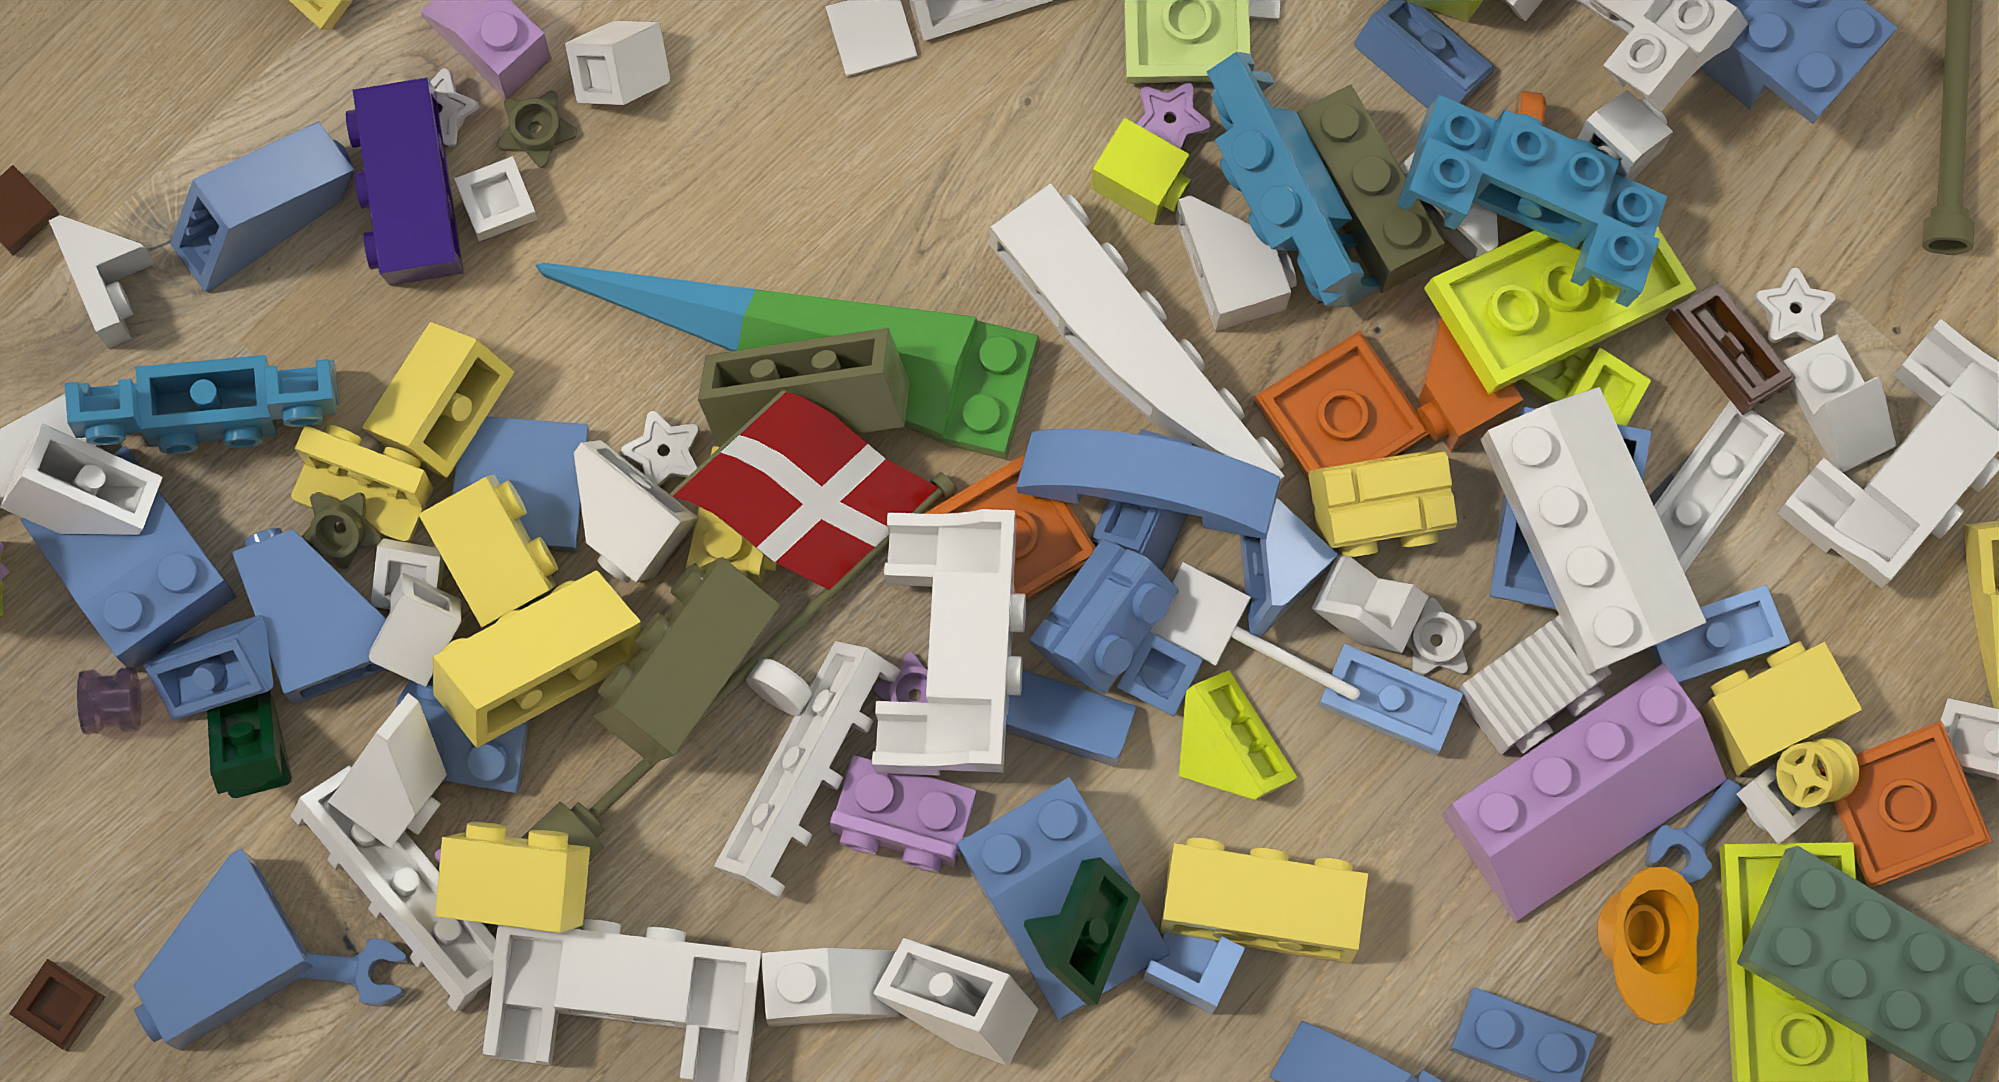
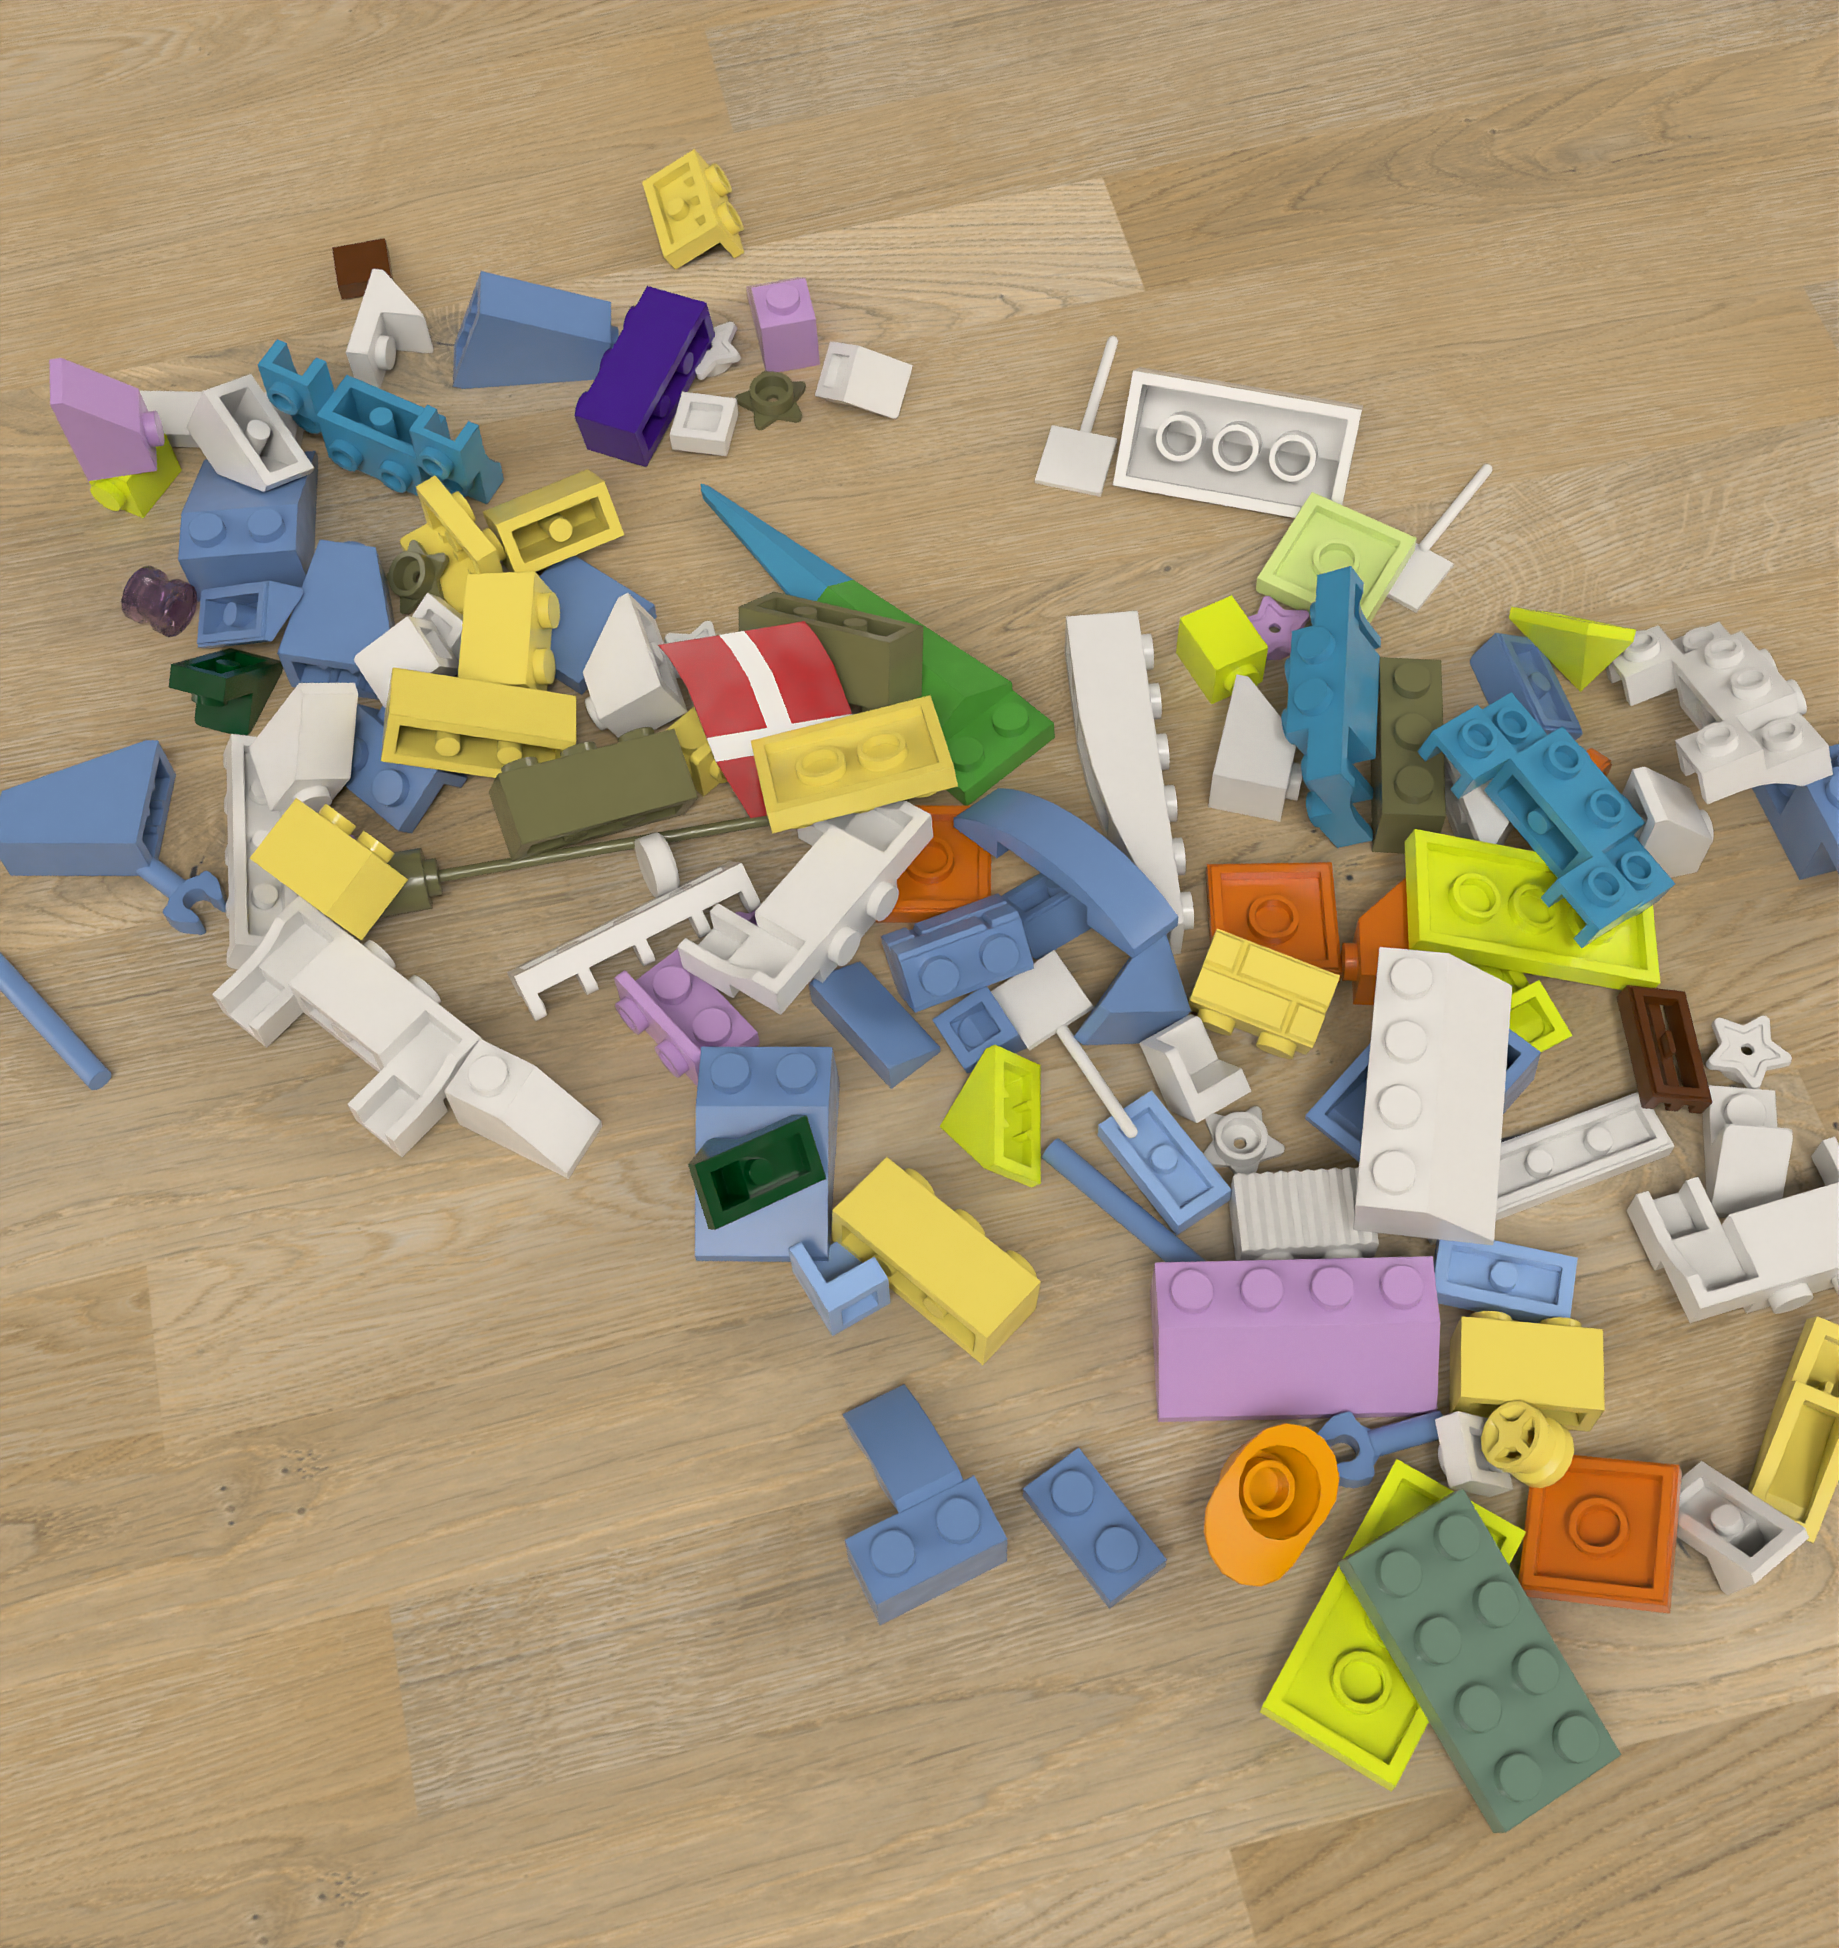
camera: 40 degrees right, 15 degrees down
(913, 501) = (853, 764): none -> light yellow plate
(957, 1000) = (618, 1183): white slope -> none
(1382, 759) = (1118, 1204): none -> medium blue bar

